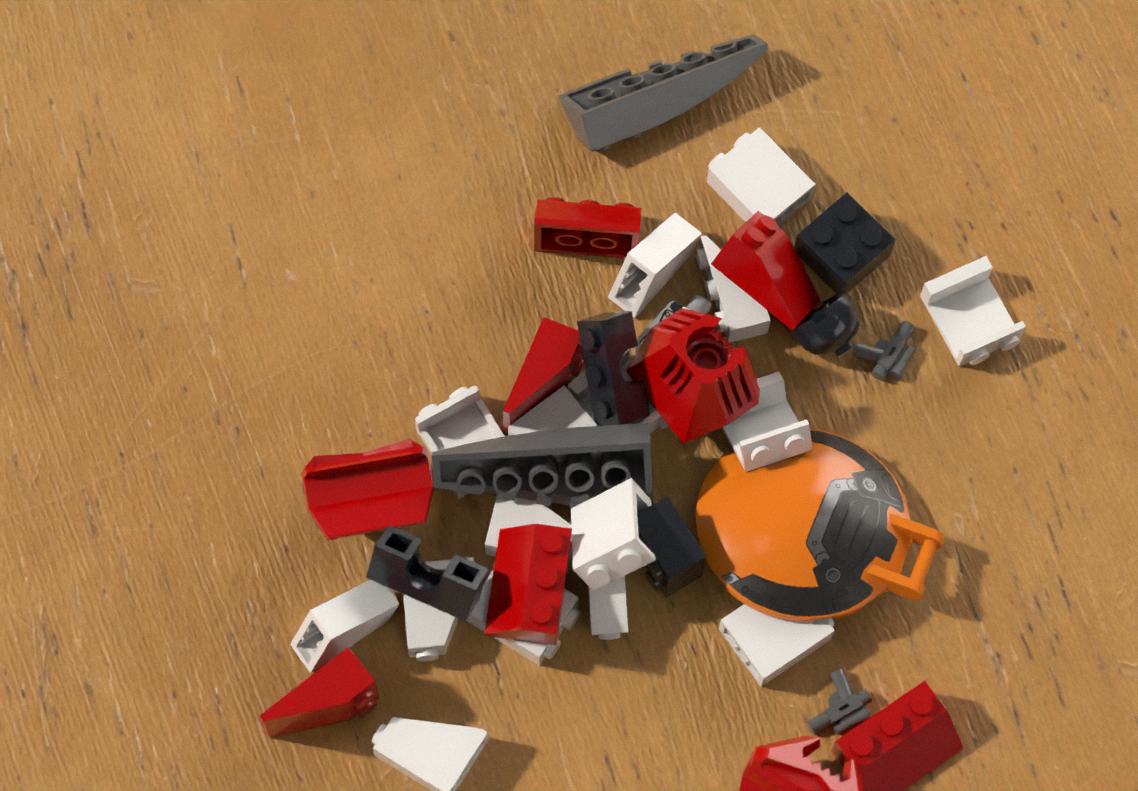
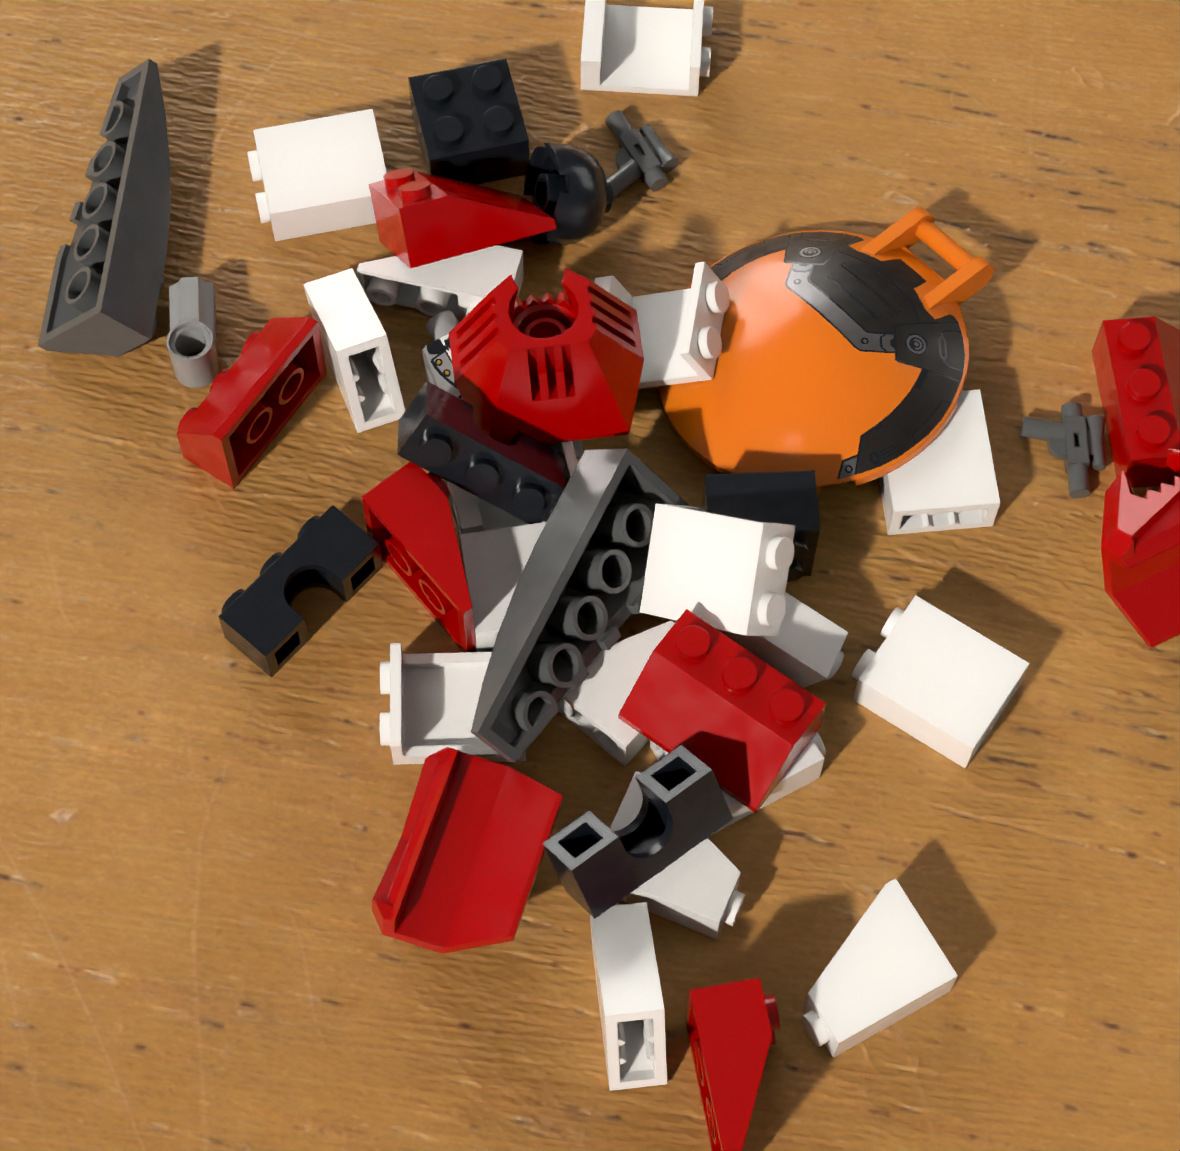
camera: 60 degrees left, 5 degrees down
(459, 310) = (328, 555): none -> black arch
(616, 170) = (193, 331): none -> light grey piece
(632, 700) = (938, 680): none -> white brick

